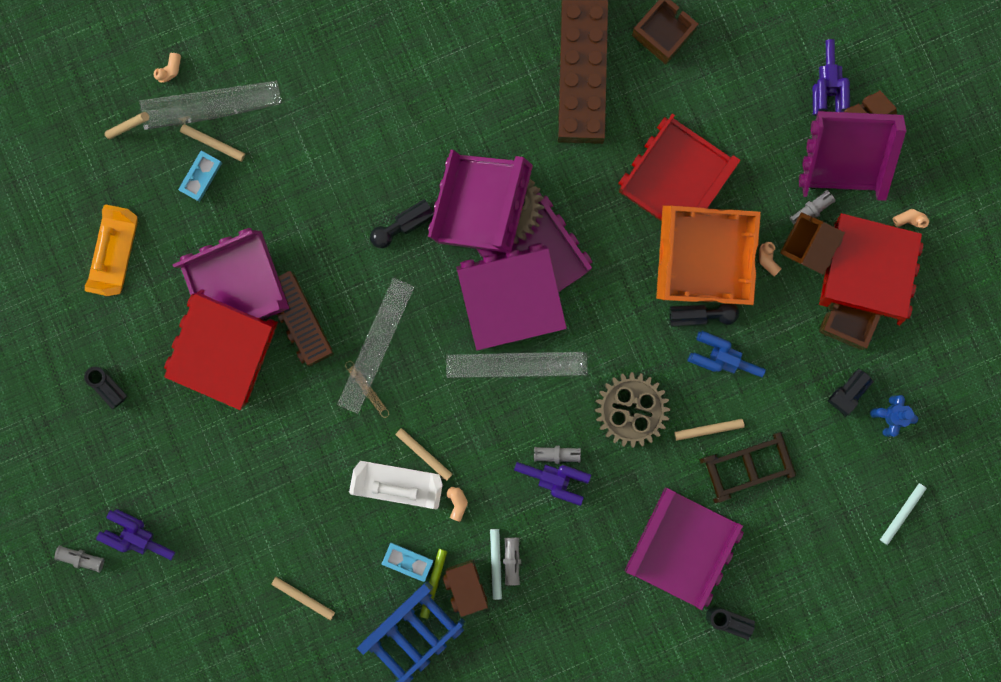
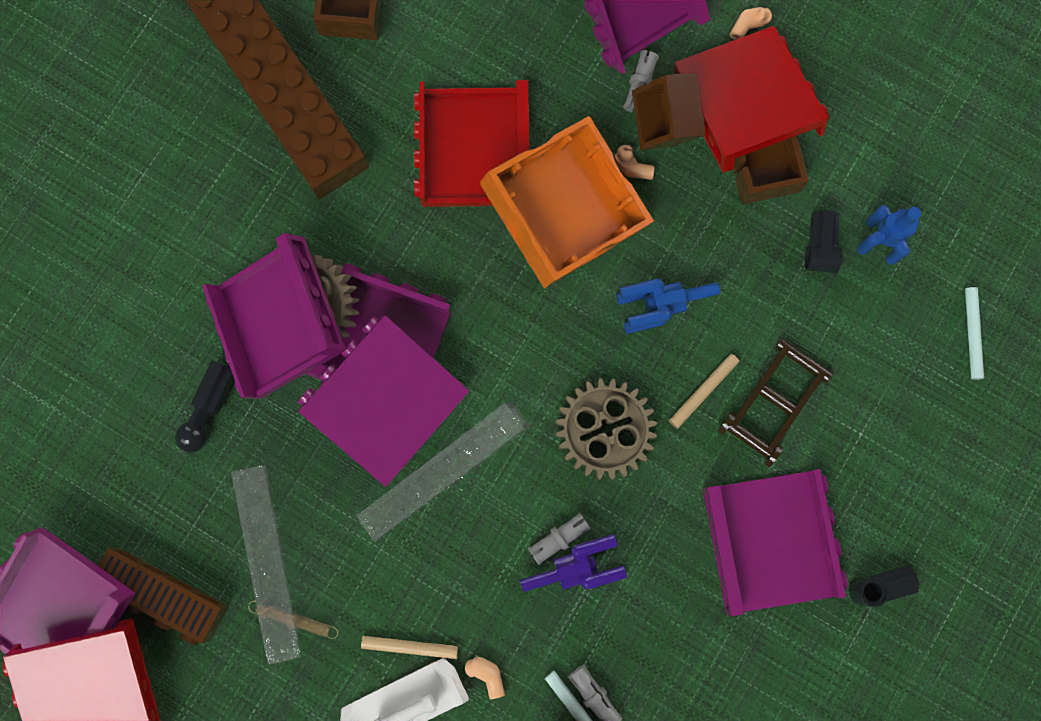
camera: 40 degrees left, 5 degrees down
(699, 315) = (604, 274): black piece -> none

